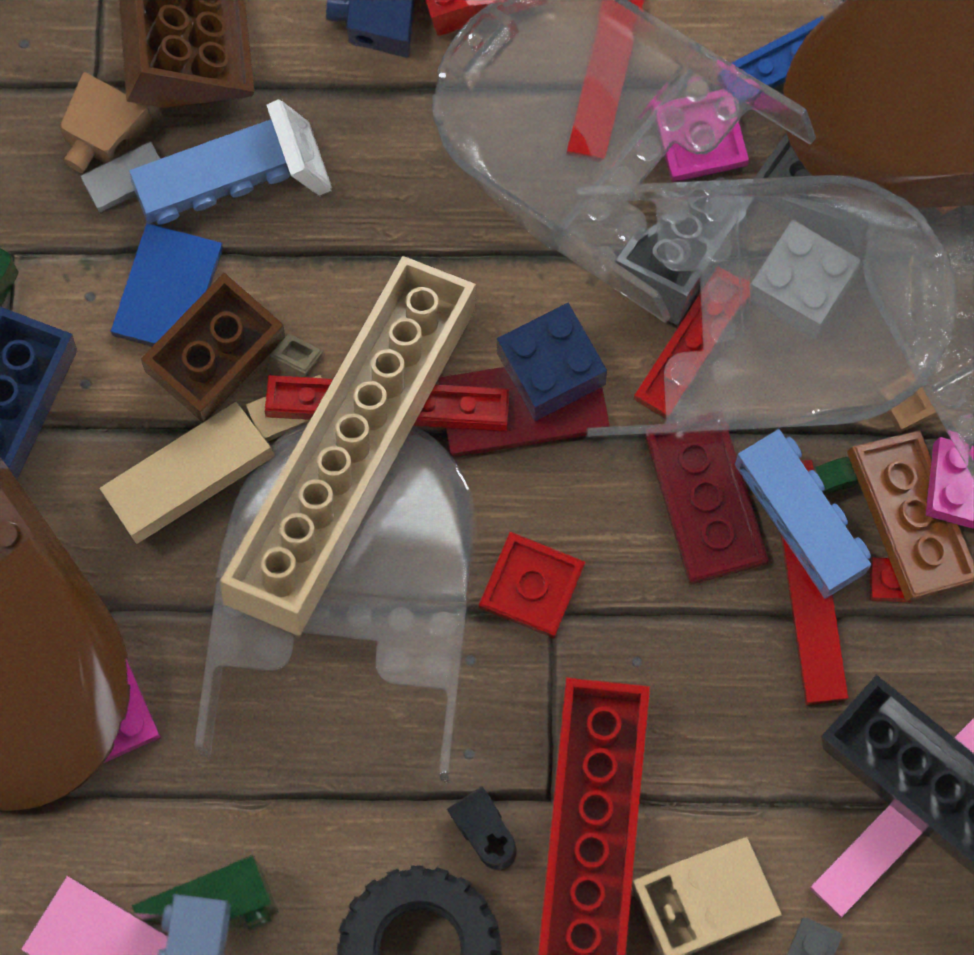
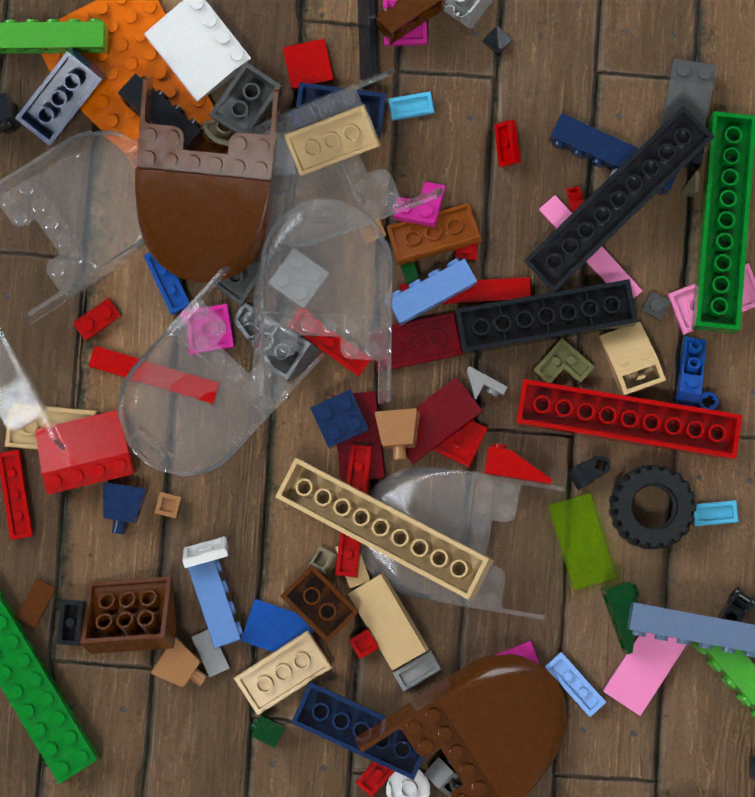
camera: 85 degrees left, 10 degrees up
(79, 822) = (575, 684): none -> light blue plate
(91, 298) = (283, 672): none -> tan tile
(99, 533) = (417, 671): none -> light grey tile
(145, 433) = (363, 643): none -> red plate
(349, 823) = (581, 541): none -> clear neon green tile
(381, 88) = (168, 505): none -> medium nougat plate
(485, 670) = (508, 464): none -> red slope
(537, 466) = (398, 430): none -> medium nougat torso
(561, 536) = (442, 417): none -> dark red tile
(640, 612) = (478, 380): none -> light grey slope
(697, 765) = (564, 358): none -> olive plate
(773, 729) = (546, 317): none -> black brick

